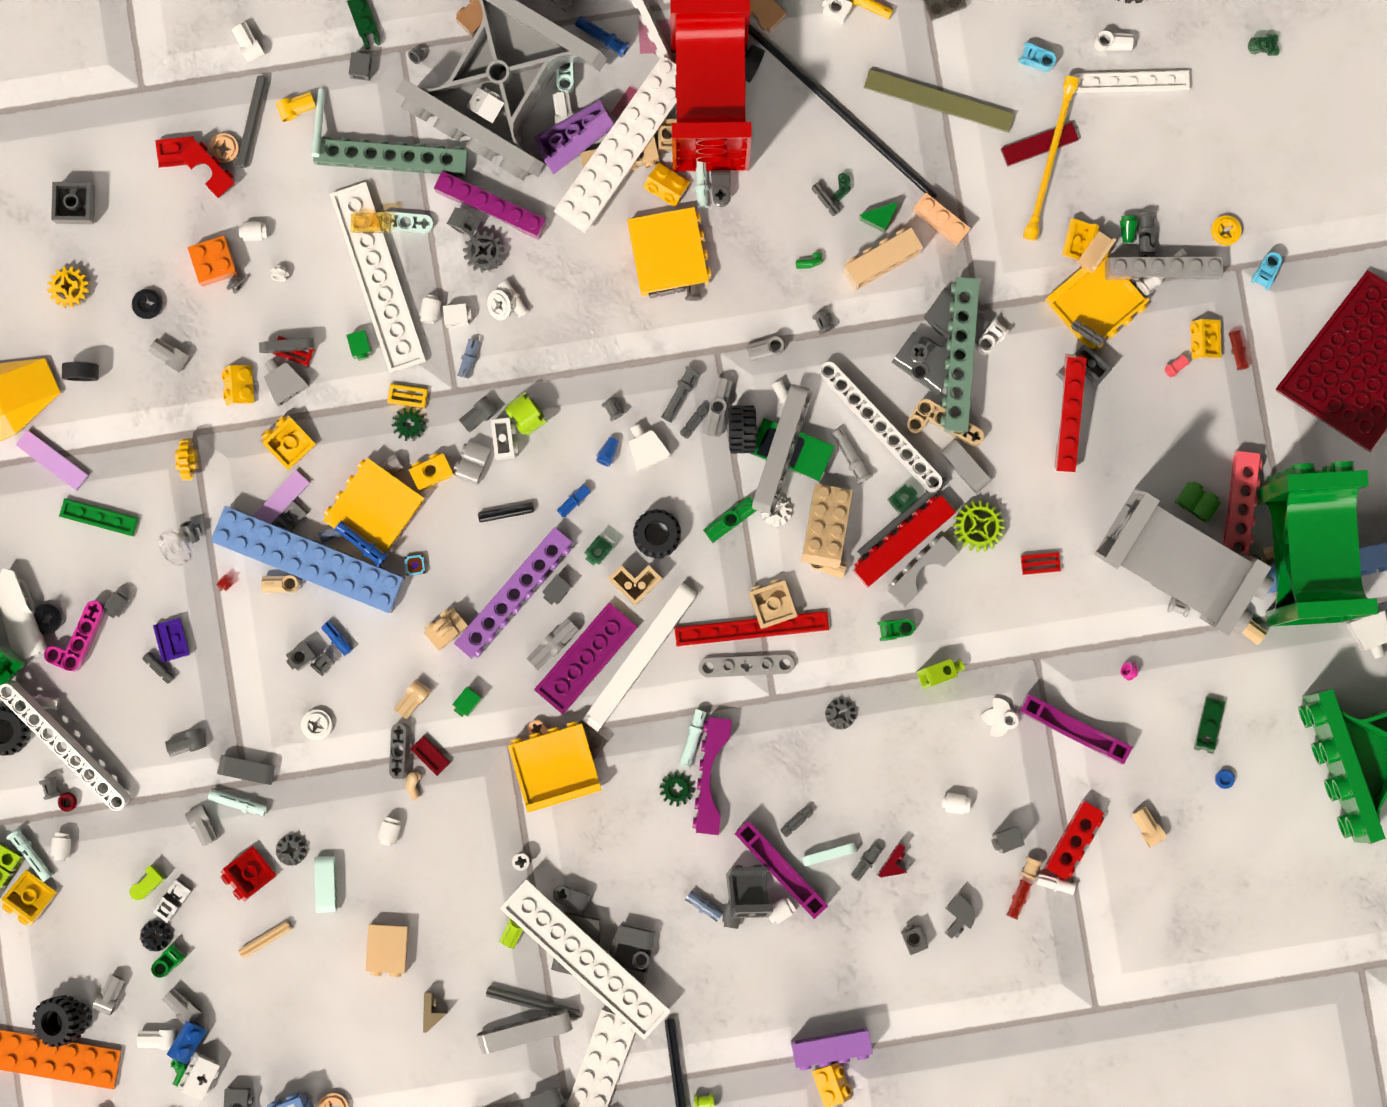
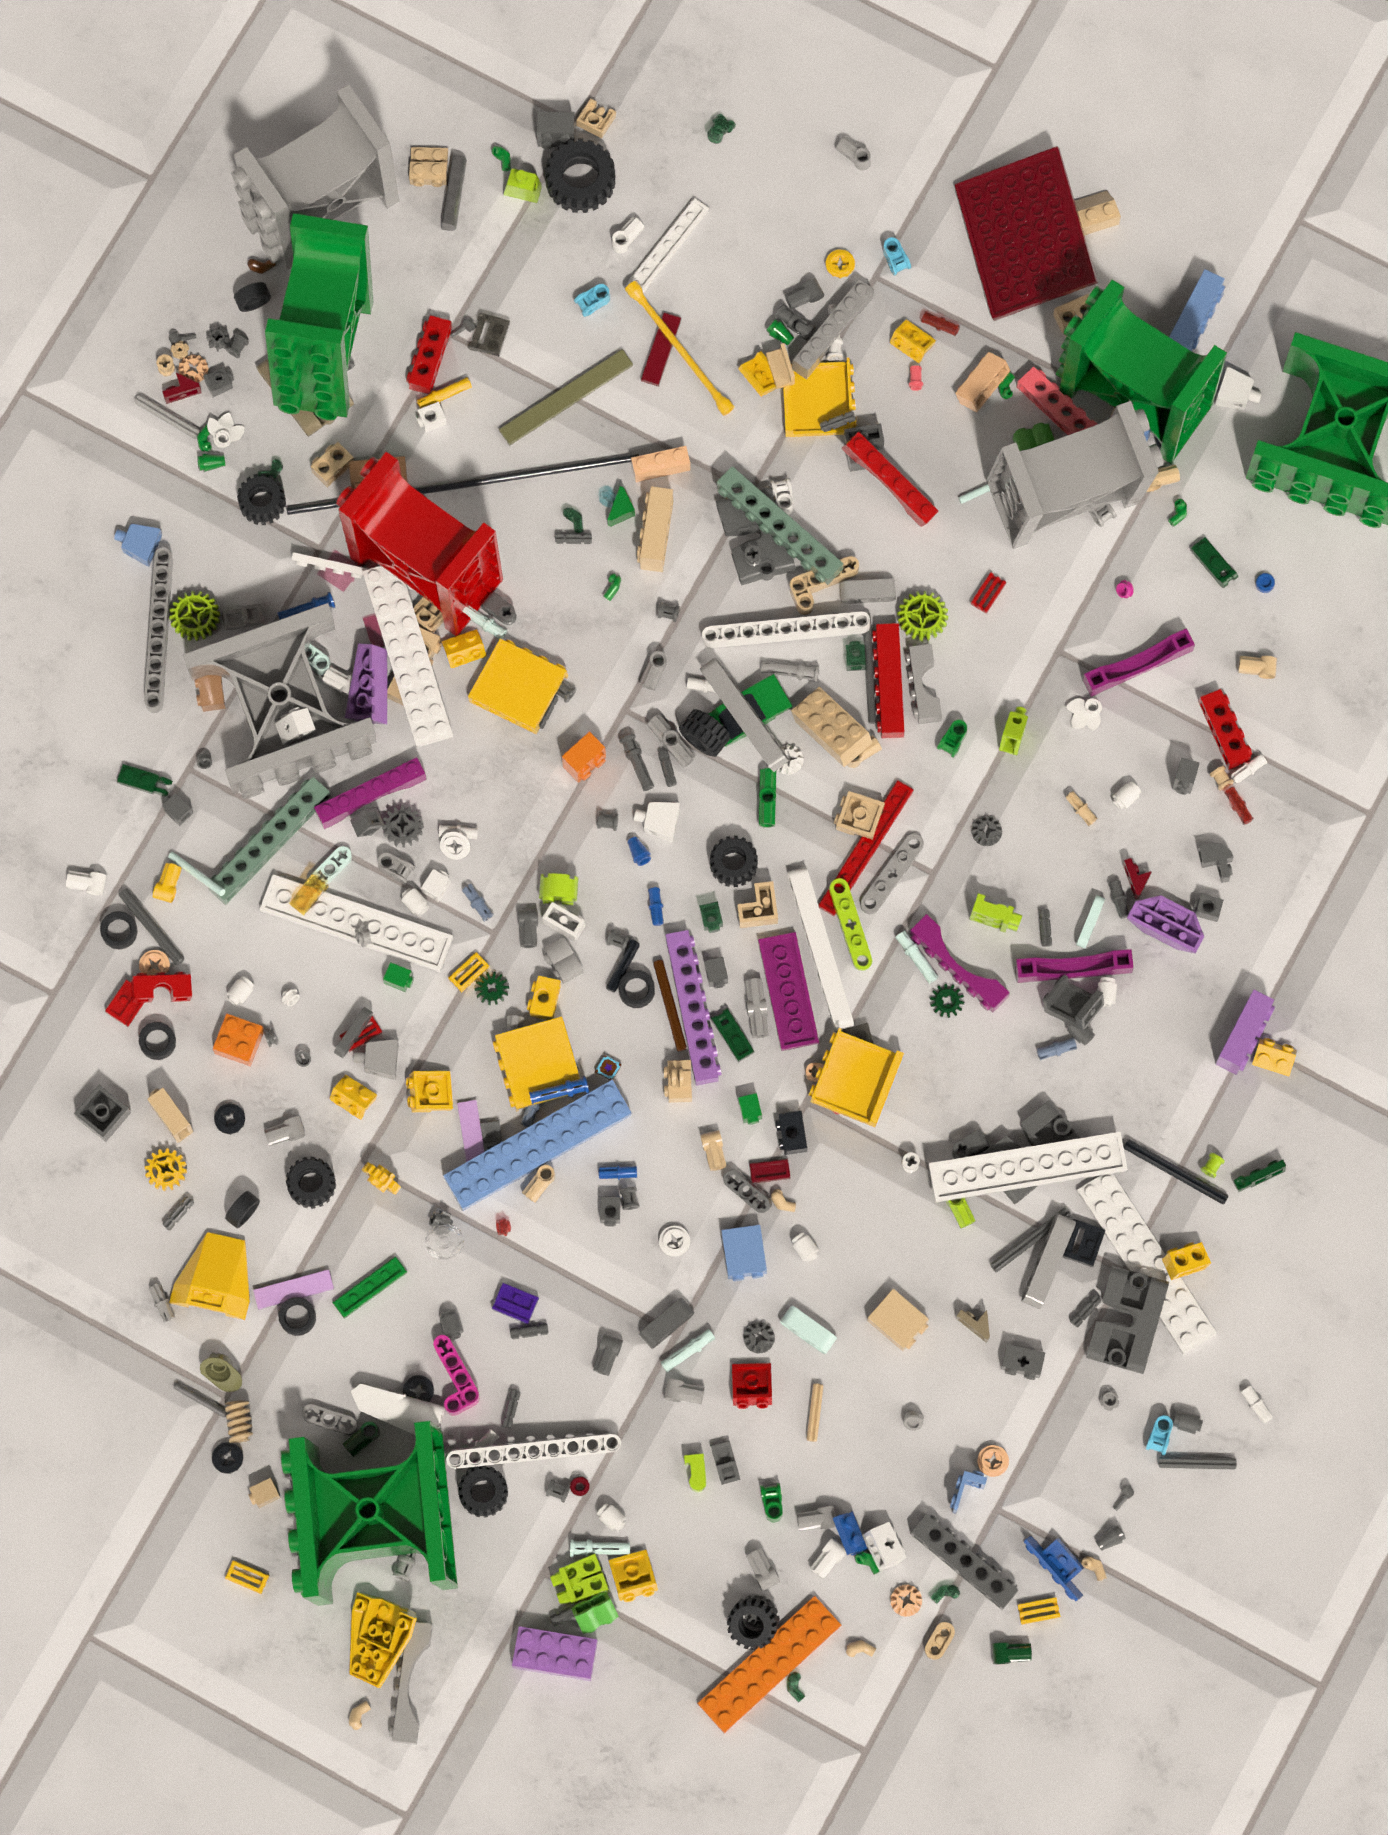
camera: 50 degrees left, 10 degrees down
(17, 479) = (282, 1316): none -> black tyre
(38, 1087) = (792, 1686): none -> clear green arm
(40, 323) = (178, 1213): none -> dark grey axle
(87, 701) = (510, 1409): none -> dark grey axle
(110, 255) = (169, 1114): none -> tan brick
(128, 400) = (304, 1167): none -> black tyre
(157, 186) = (152, 1027): none -> black tyre
(160, 928) = (734, 1500): black gear -> none
(228, 84) = (118, 915): none -> black tyre
(234, 320) = (299, 1061): none -> dark grey hinge
(317, 1021) = (913, 1420): none -> light grey tile
(348, 787) = (744, 1252): none -> medium blue brick
(367, 292) = (363, 937): none -> light grey plate
(431, 1062) = (1032, 1357): none -> dark grey brick
(445, 273) = (396, 868): none -> light grey piece
(483, 744) = (793, 1121): none -> black brick
(495, 523) = (632, 975): none -> black tyre
(502, 574) = (670, 1005): none -> reddish brown axle
(509, 1090) = (1086, 1310): none -> dark grey axle
(516, 642) = (732, 1035): none -> dark green plate
(523, 492) = (618, 940): none -> dark grey bush
(562, 1053) = (1089, 1244): none -> black plate
(648, 350) = (584, 757): none -> orange brick
(670, 677) = (847, 911): none -> lime piece
(772, 775) = (995, 915): none -> lime hips
(875, 918) = (1167, 923): none -> medium lavender wedge
(880, 199) = (607, 498): none -> clear light blue plate
(917, 775) = (1081, 808): none -> tan axle
(1114, 487) = (973, 494): none -> light aqua bar
(1181, 224) = (809, 292): none -> dark grey piece
(1214, 422) = (982, 381): none -> light nougat brick
(1225, 442) = (1004, 386): none -> green arm
(1230, 666) = (1180, 512): none -> green arm
(1330, 167) = (854, 152): none -> light grey piece
(1334, 448) = (1069, 310): none -> tan brick

